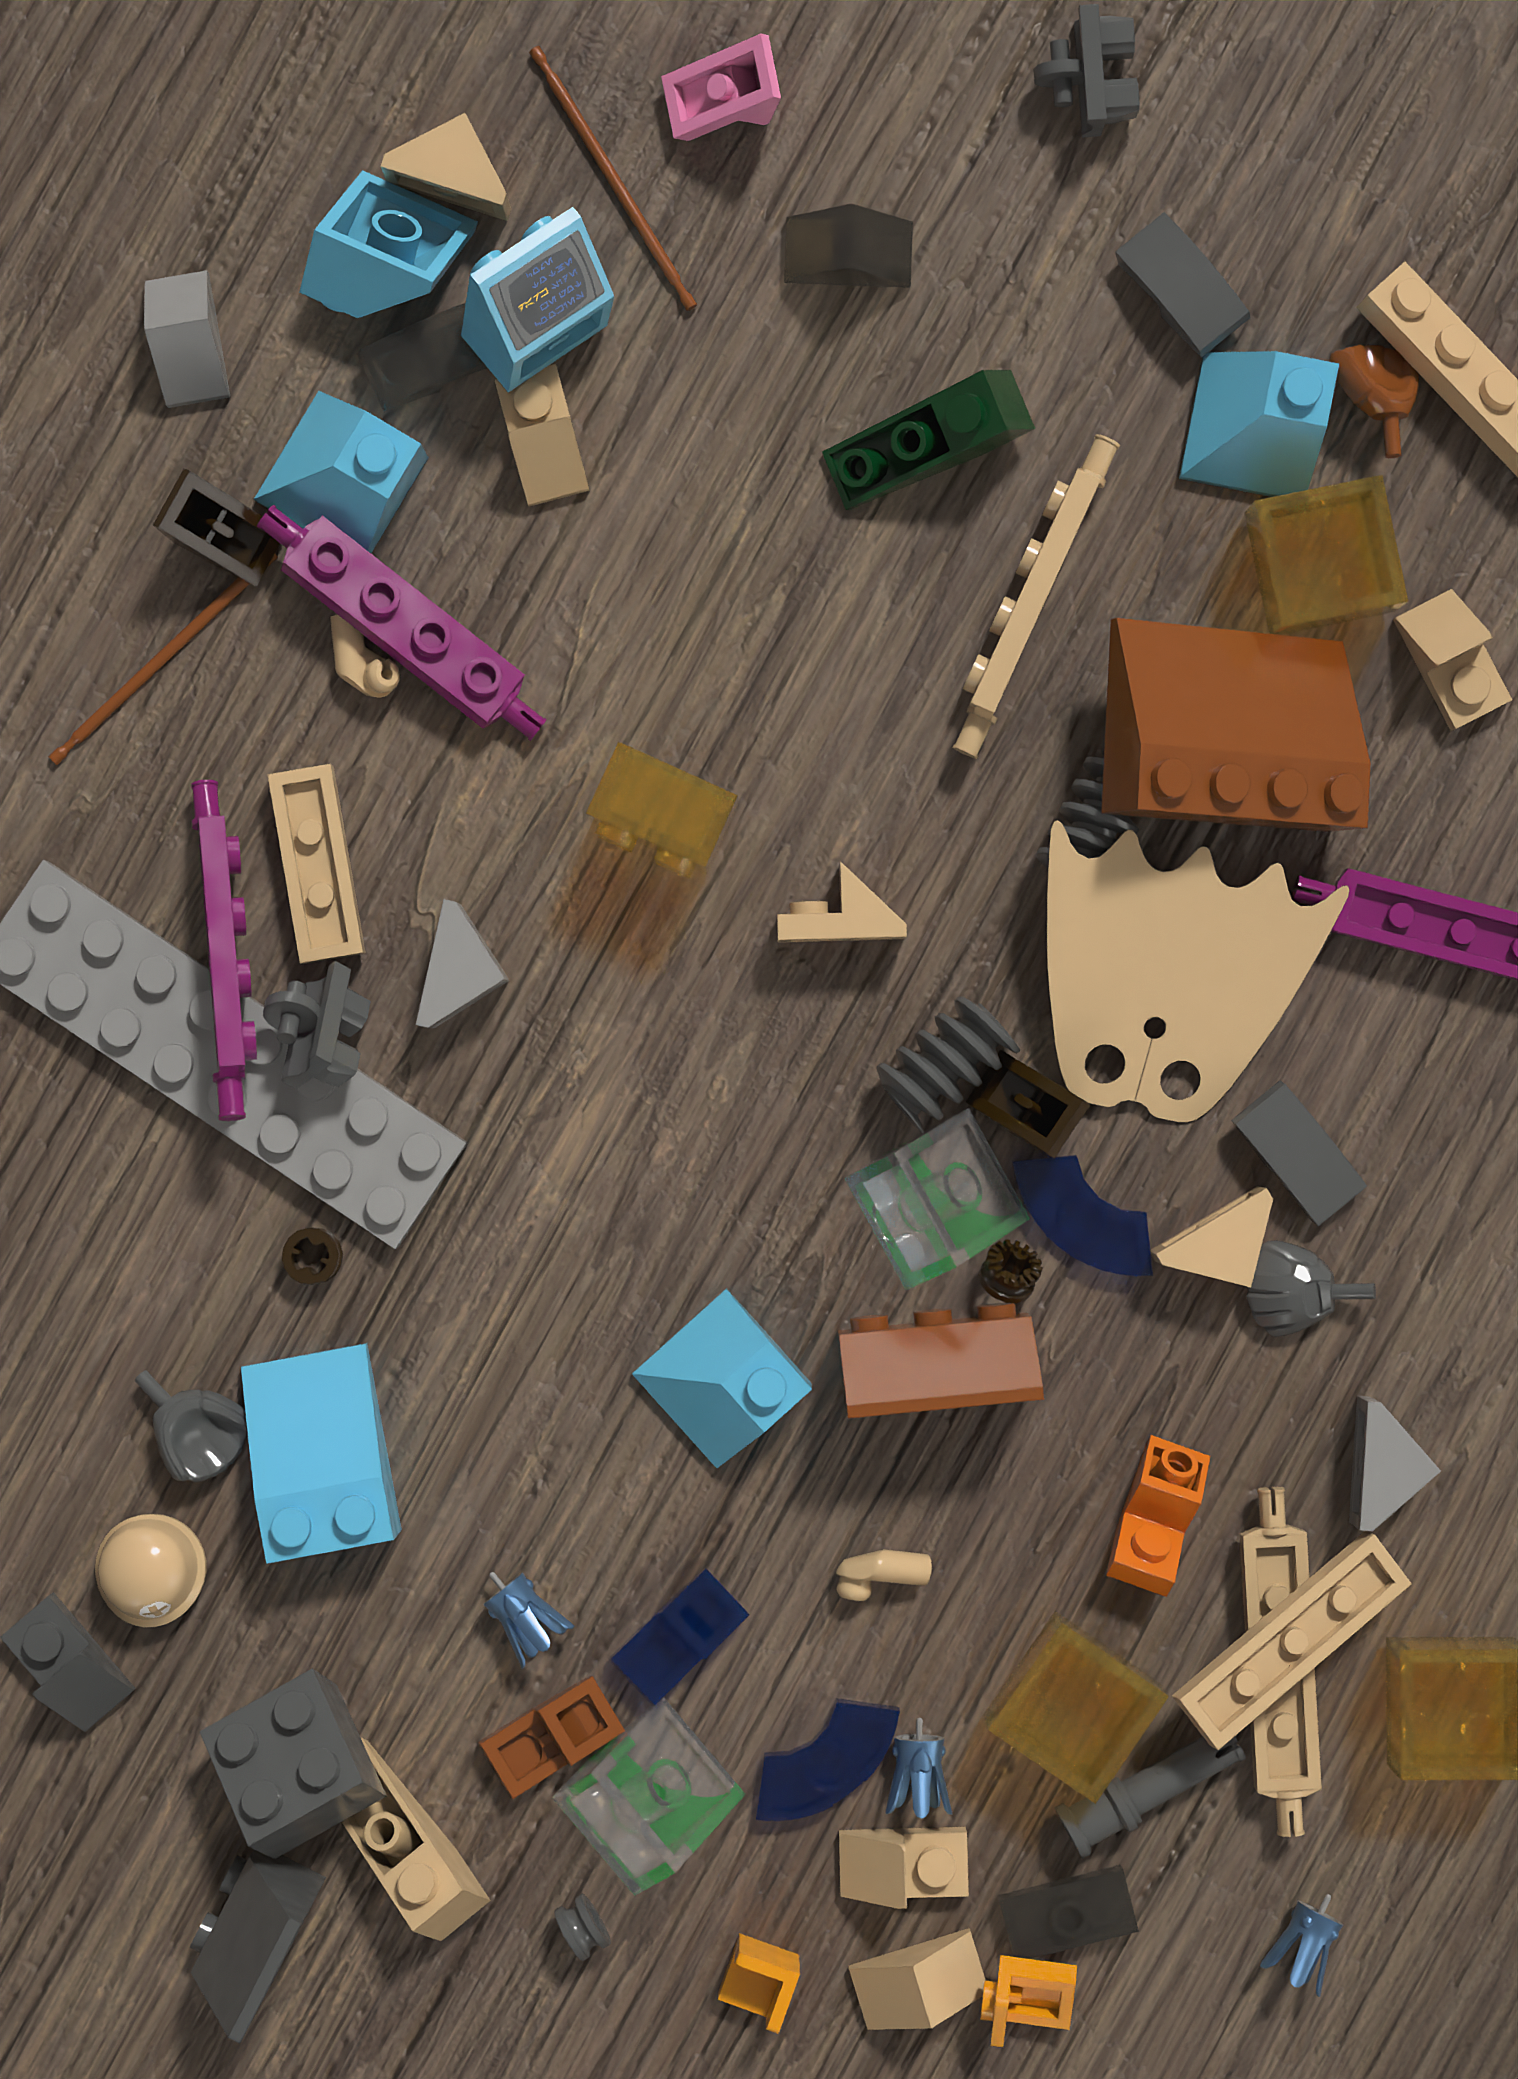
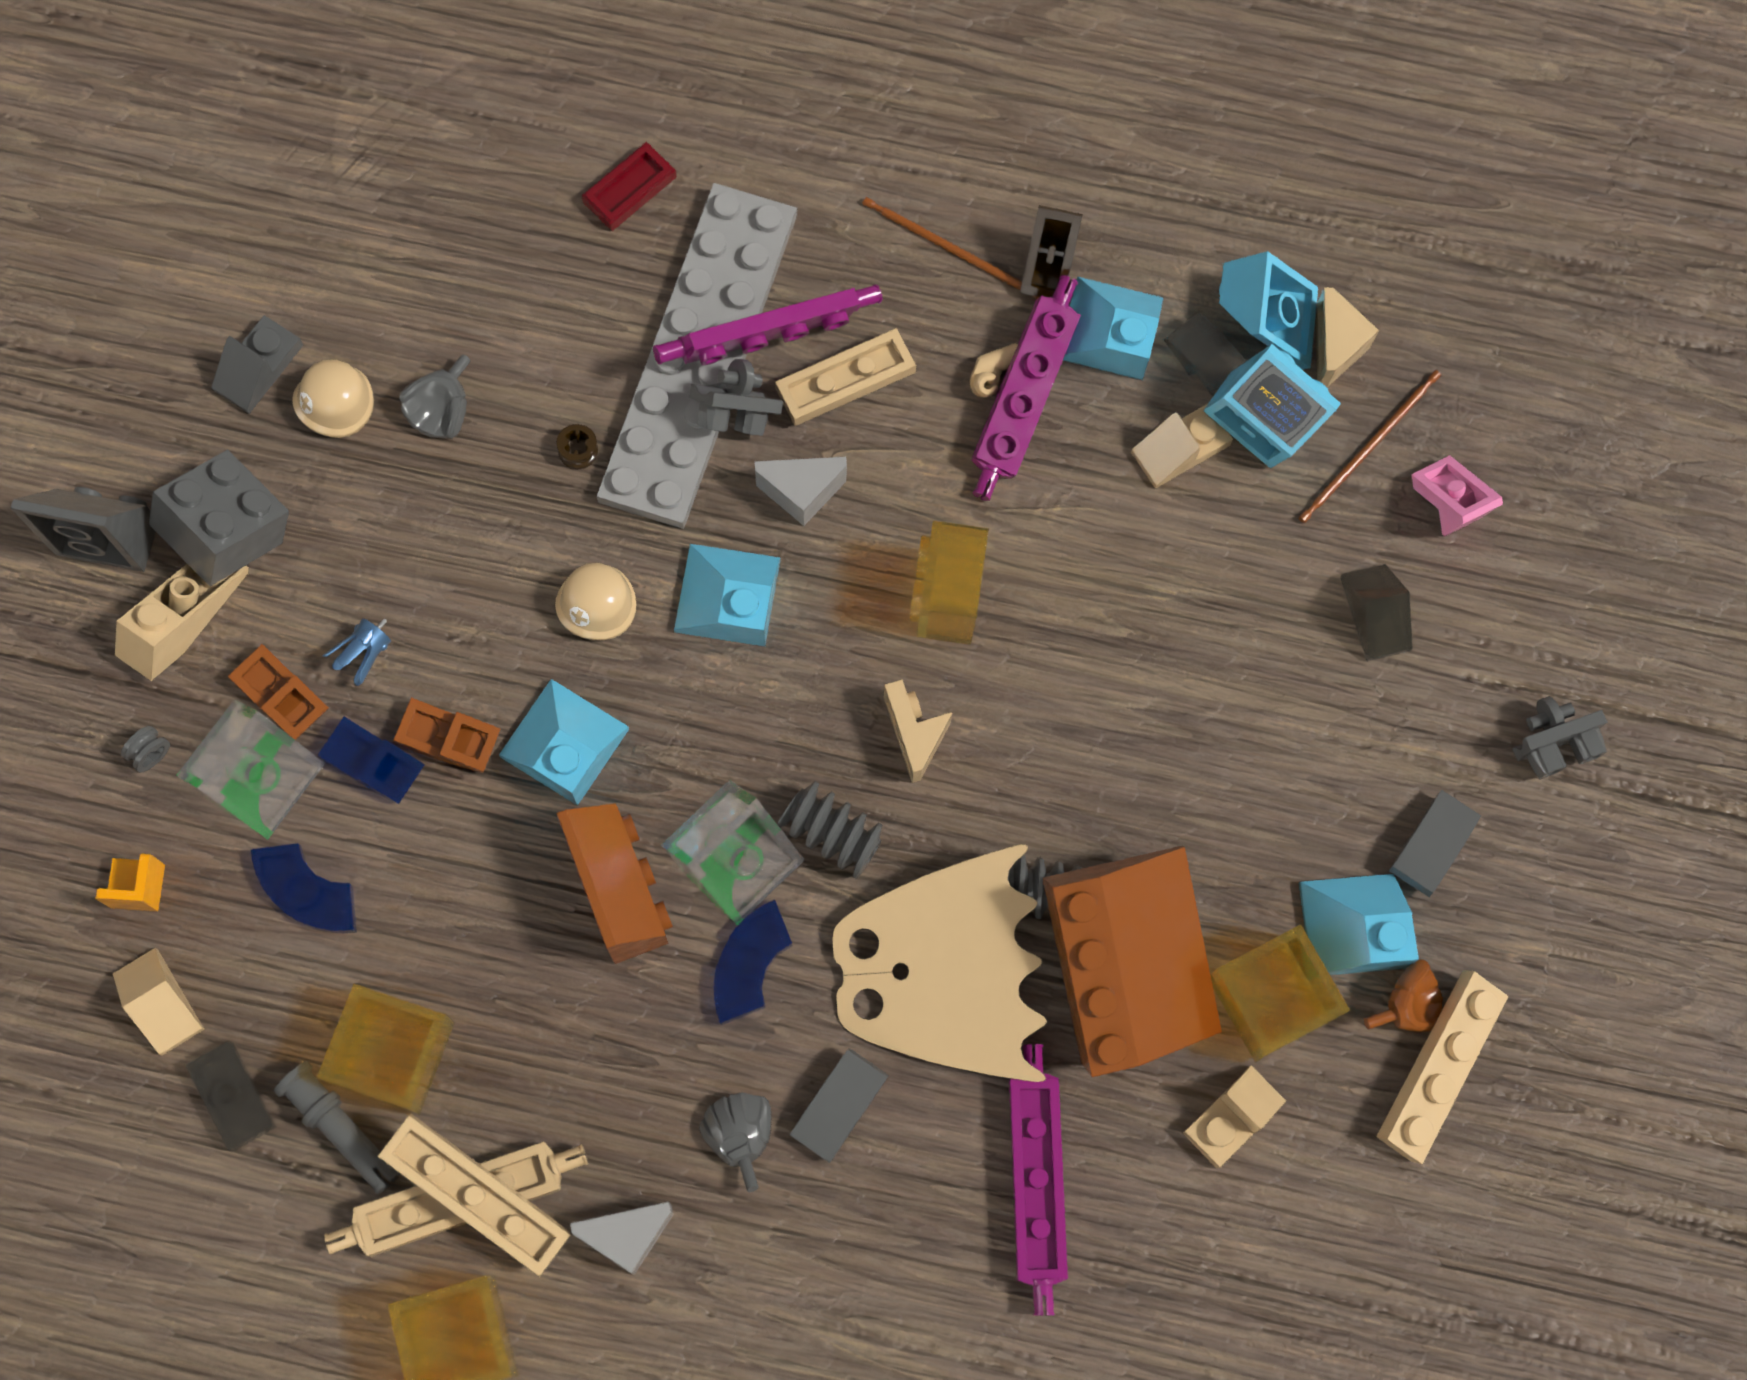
camera: 70 degrees right, 15 degrees down
(185, 339) = (1167, 206): light grey slope -> none
(318, 1454) = (440, 484): medium azure slope -> none
(542, 1288) = (596, 602): none -> tan helmet
(579, 1109) = (727, 595): none -> medium azure slope
(672, 1530) = (446, 736): none -> dark orange slope
(881, 1566) = (456, 888): tan arm -> none
(903, 1864) = (241, 965): tan slope -> none
(918, 1758) = (321, 949): flat silver piece -> none
(929, 437) = (1270, 699): dark green slope -> none
(1017, 1262) = (702, 925): dark brown bush -> none
(1028, 1105) = (817, 898): dark brown slope -> none
(1029, 1994) = (163, 1079): light orange bracket -> none
(1040, 567) = (1200, 799): tan plate -> none
(1157, 1514) = (543, 1076): orange slope -> none
(1222, 1243) = (756, 1065): tan slope -> none
(1318, 1934) = (245, 1280): flat silver piece -> none

